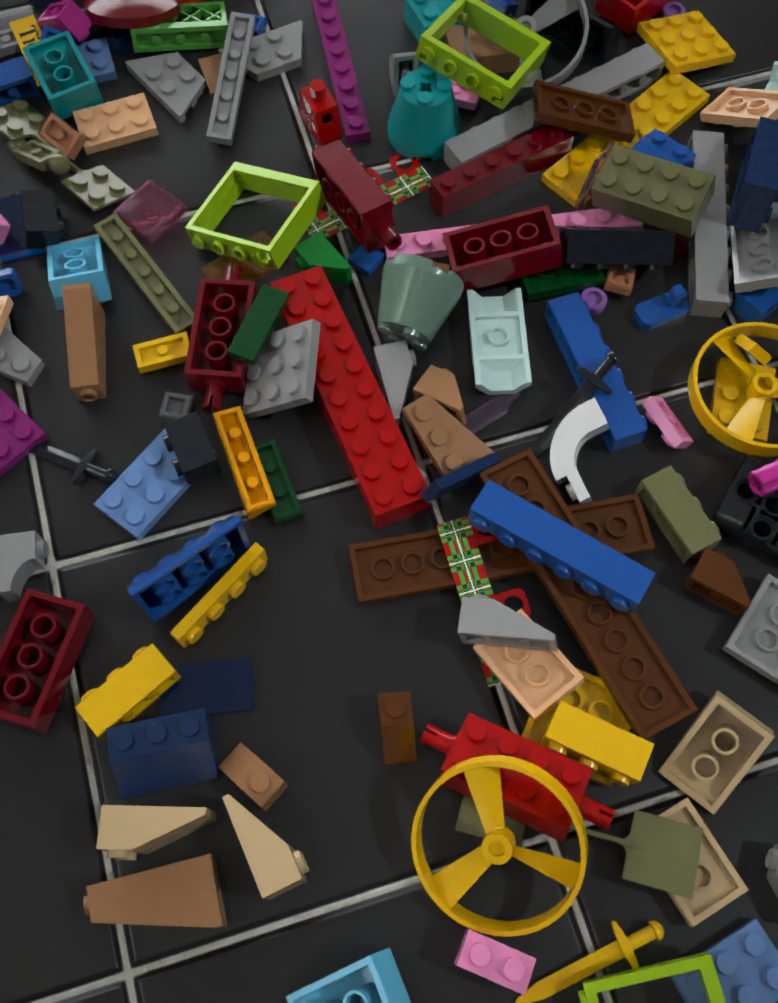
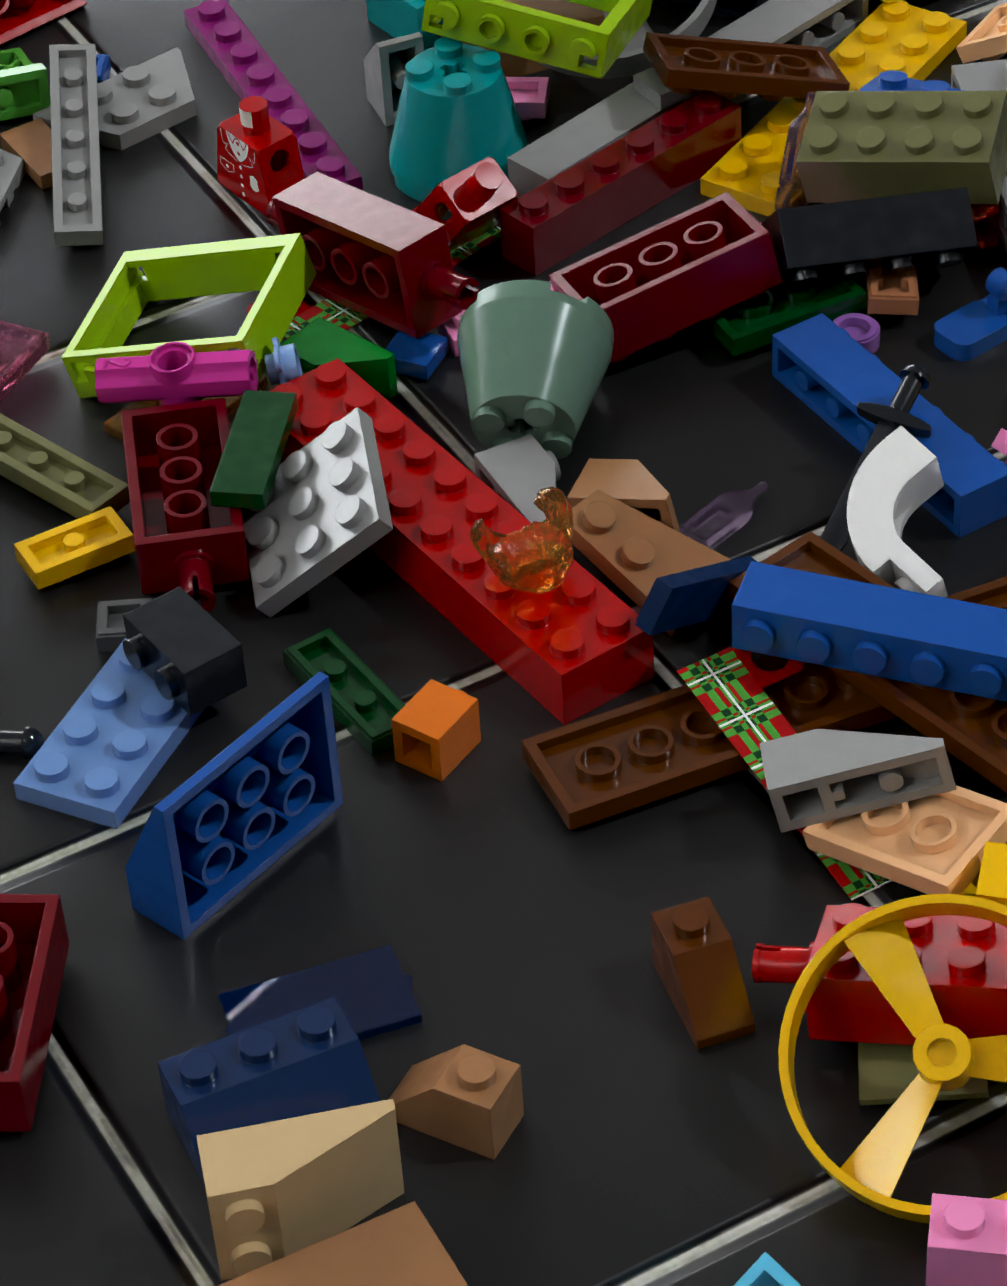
camera: 10 degrees left, 25 degrees down
(127, 691) = (190, 1004): yellow brick -> none
(214, 602) = (302, 860): yellow plate -> none
(233, 262) = (175, 375): none -> dark pink piece
(244, 461) = (277, 659): light orange slope -> none
(270, 858) = (517, 1171): tan slope -> none
(292, 262) = (283, 363): none -> light blue plate
(309, 523) = (436, 730): none -> orange brick
(377, 440) = (538, 554): none -> clear orange hair
(414, 172) = (473, 200): none -> red torso
(499, 343) = (705, 419): light aqua piece -> none

